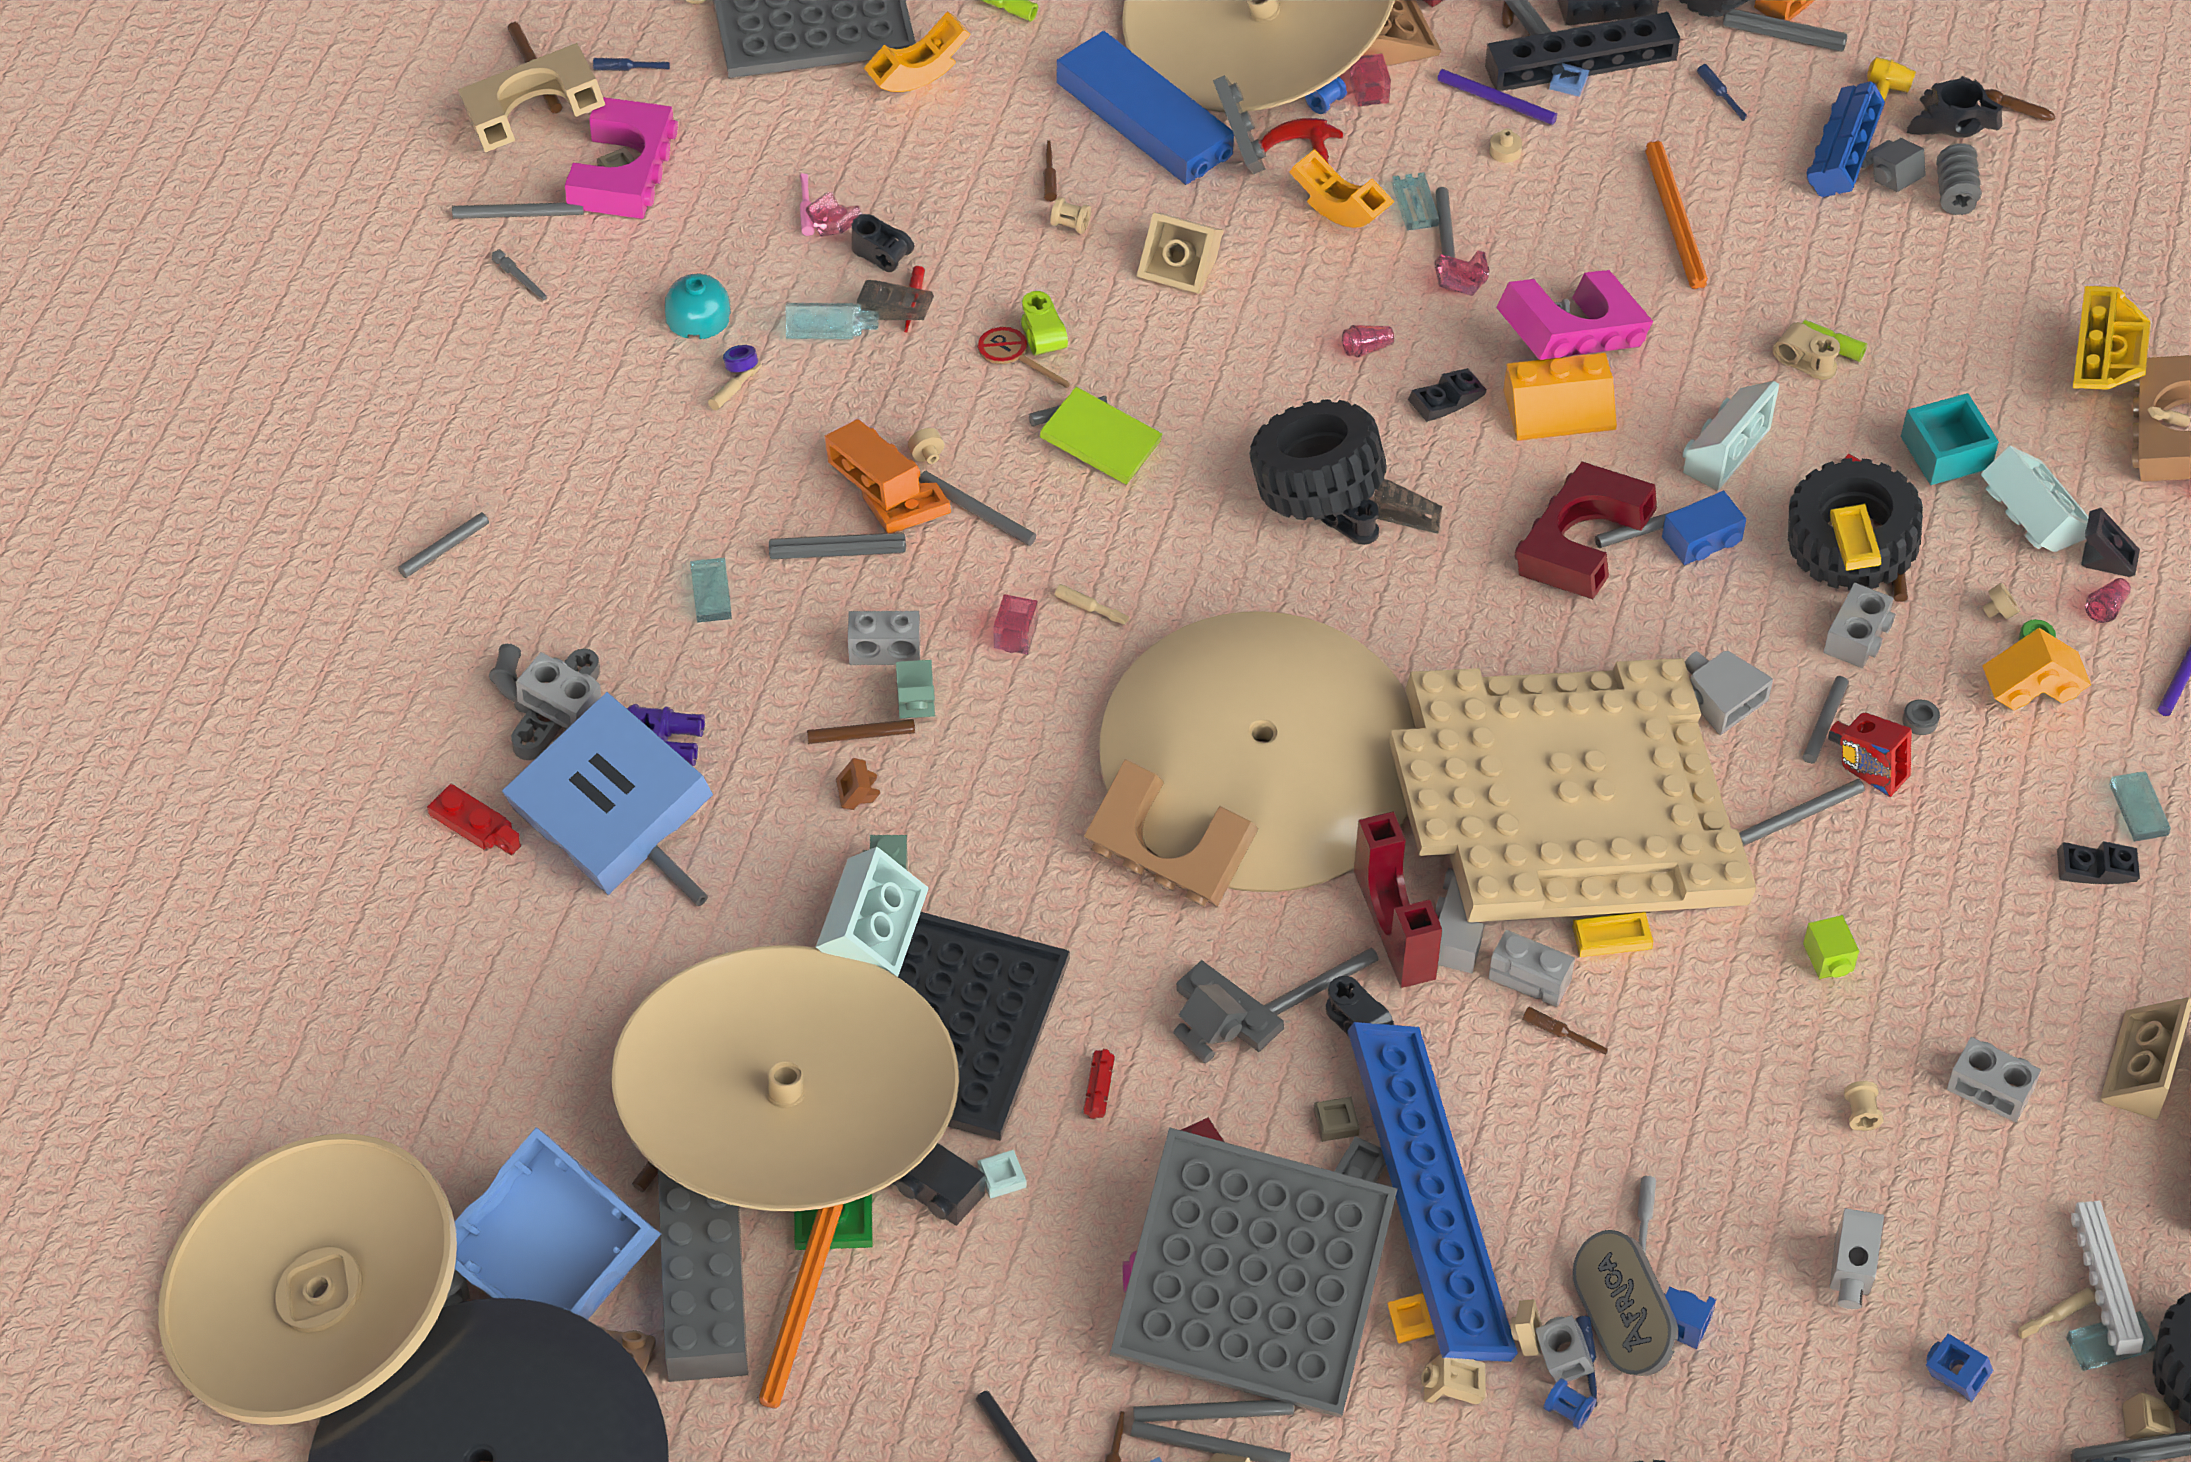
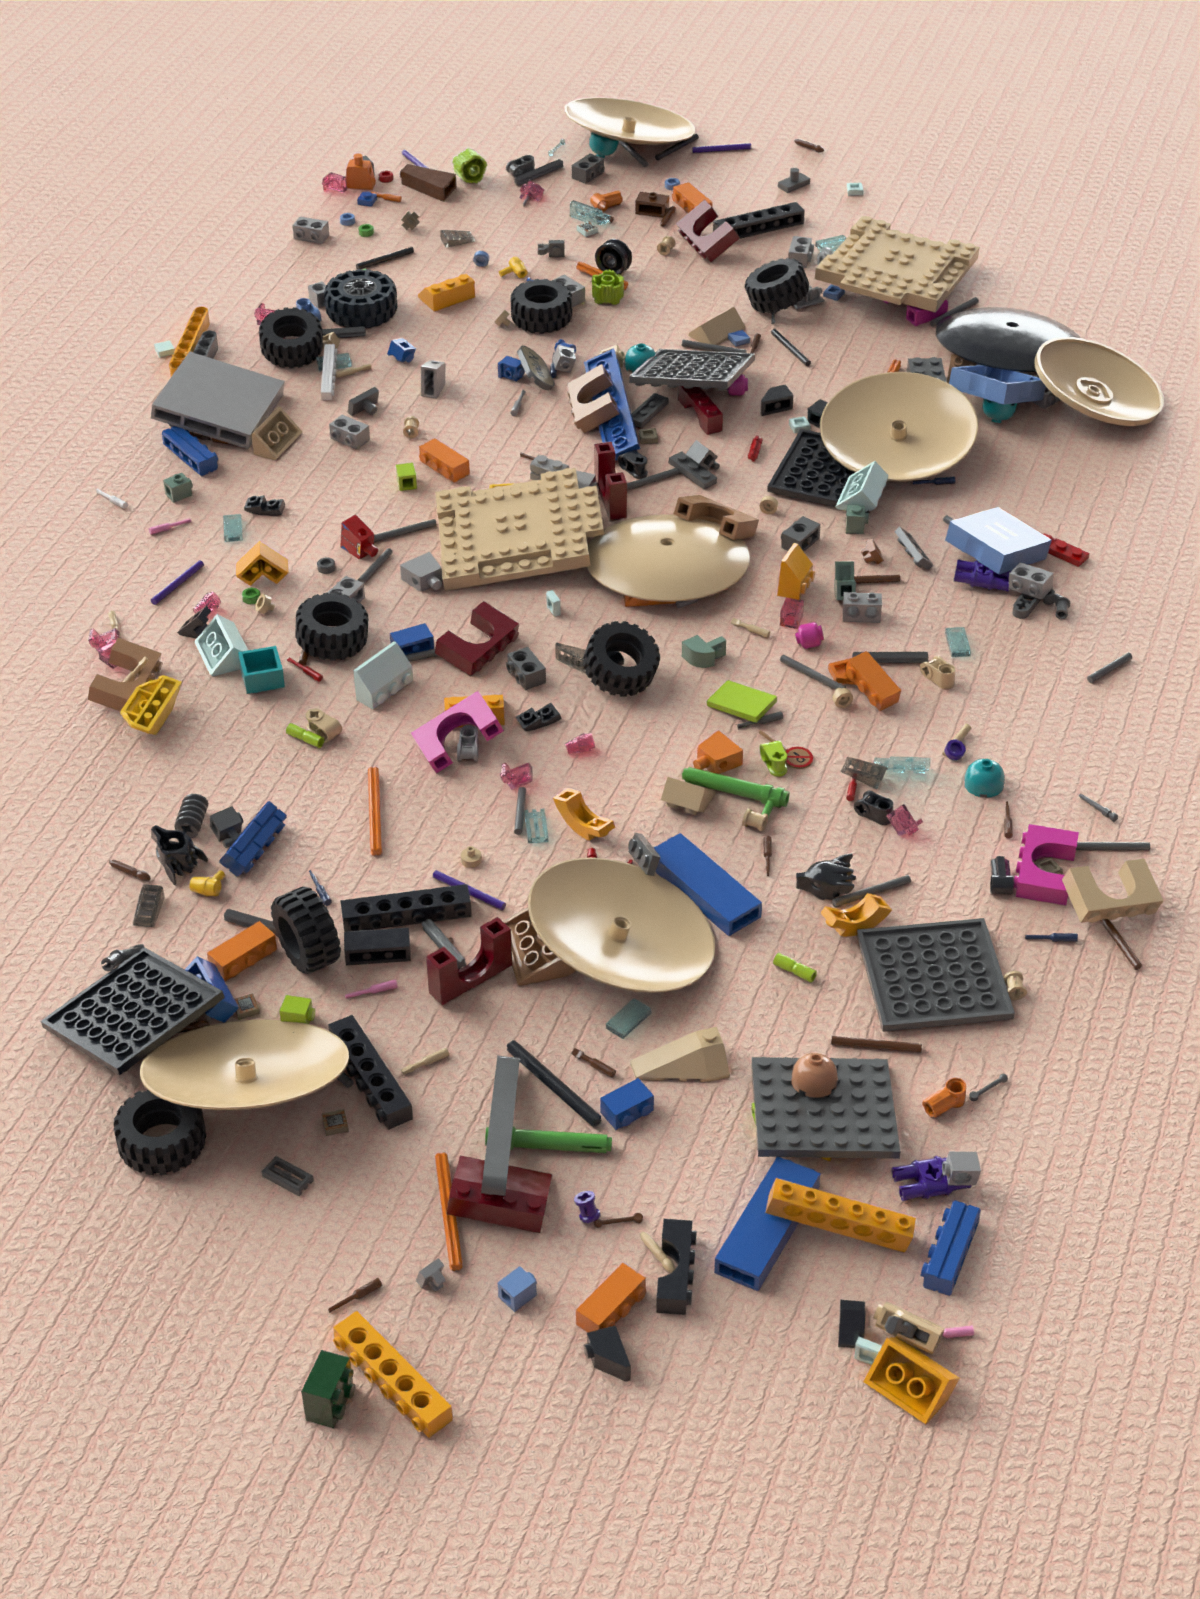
camera: 175 degrees left, 10 degrees down
(669, 239) = (1008, 829): none -> reddish brown piece
(693, 140) = (1001, 880): none -> black piece
(752, 506) = (939, 672): none -> tan piece
(775, 797) = (913, 548): none -> plate
(806, 224) = (923, 839): bright pink piece -> none
(891, 121) = (871, 890): none -> dark grey bar
(952, 109) = (832, 875): none -> black piece
(982, 573) = (809, 635): none -> dark pink head
(983, 826) = (803, 532): none -> dark grey brick
(1009, 676) = (795, 573): none -> light orange slope
(1054, 1233) = (776, 400): none -> black slope
(1056, 260) = (765, 793): none -> bright green cylinder
(1065, 903) = (768, 505): none -> tan tile
(1135, 325) = (718, 754): none -> orange torso
(1176, 525) = (703, 654): none -> sand green brick
(1384, 1374) = (637, 356): none -> teal cylinder
(1410, 1318) = (626, 372): light orange plate -> none
(1463, 627) = (553, 603): none -> light aqua tile
(1481, 1143) = (580, 392): none -> medium nougat arch
(1486, 480) = (526, 668): none -> dark grey brick
(1524, 1327) = (578, 365): tan plate -> none
(1764, 1000) = (444, 460): none -> orange brick
(1855, 537) = (339, 595): yellow tile -> none
(1963, 50) = (155, 896): none -> clear smoke slope
(1991, 1179) = (364, 402): none -> dark grey tile

